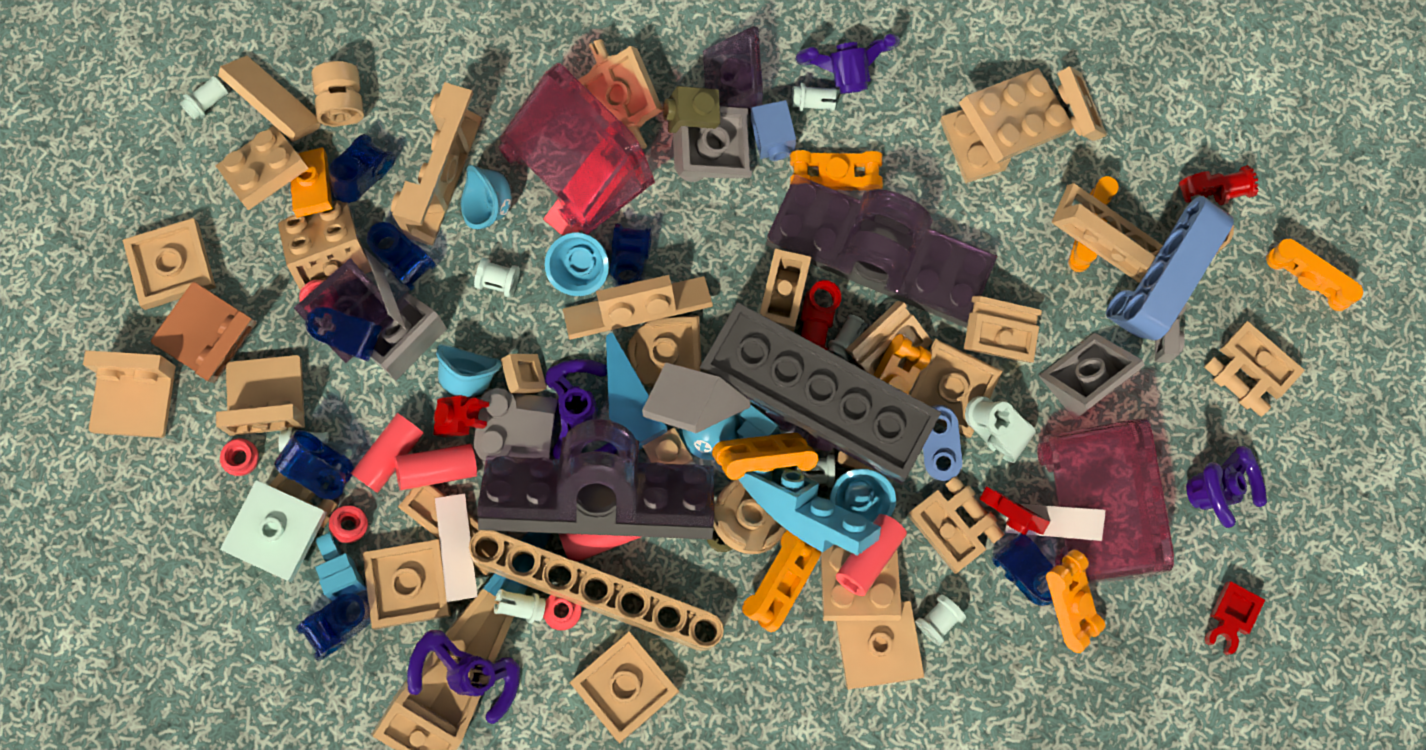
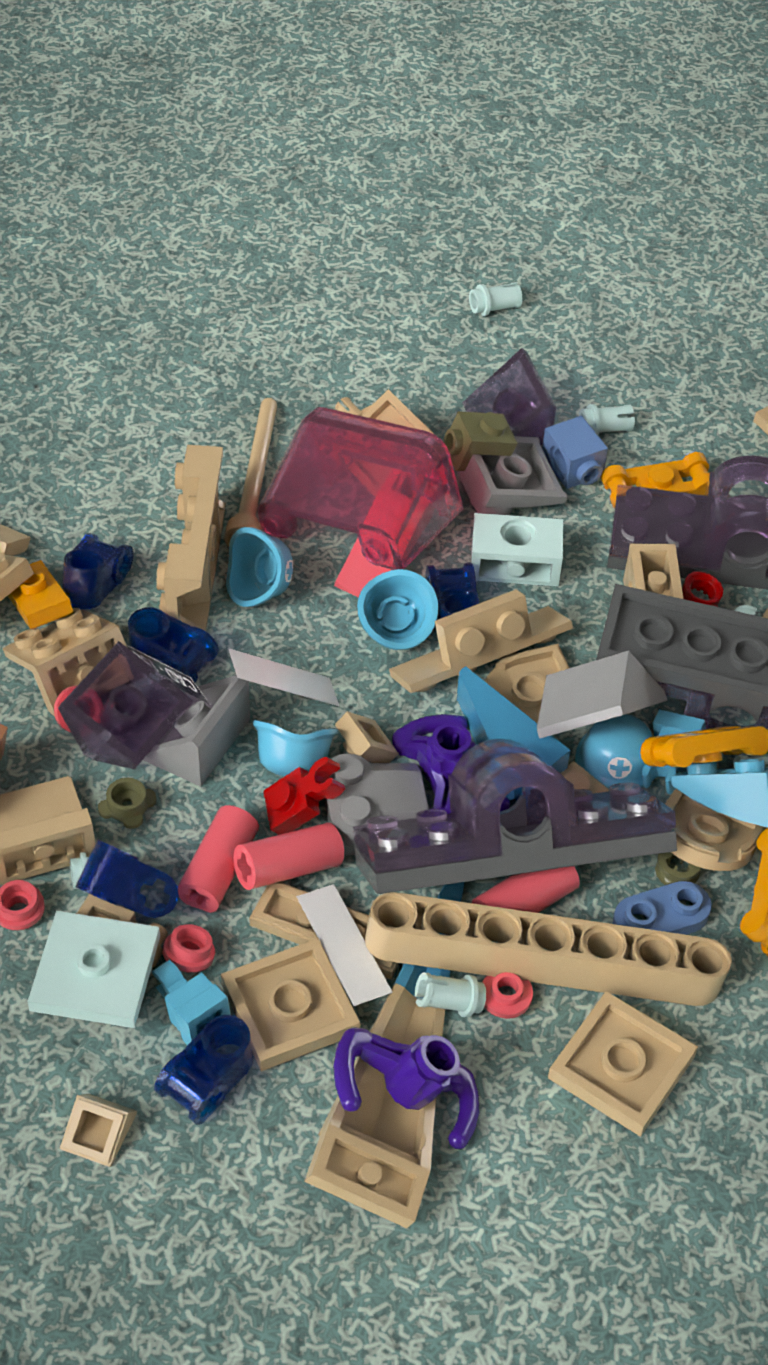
camera: 15 degrees left, 25 degrees down
(255, 644) = (97, 1129): none -> tan slope
(334, 376) = (127, 790): none -> olive plate
(337, 93) = (47, 502): tan wheel -> none
(349, 333) = (132, 718): clear blue piece -> none
(471, 310) = (283, 677): none -> white sticker
(486, 149) = (255, 471): none -> tan piece
(497, 277) = (299, 648): light aqua bush -> none
(696, 572) = (664, 910): none -> medium blue plate
(709, 233) = (517, 549): none -> light aqua brick
(849, 62) = (633, 377): dark purple piece -> none

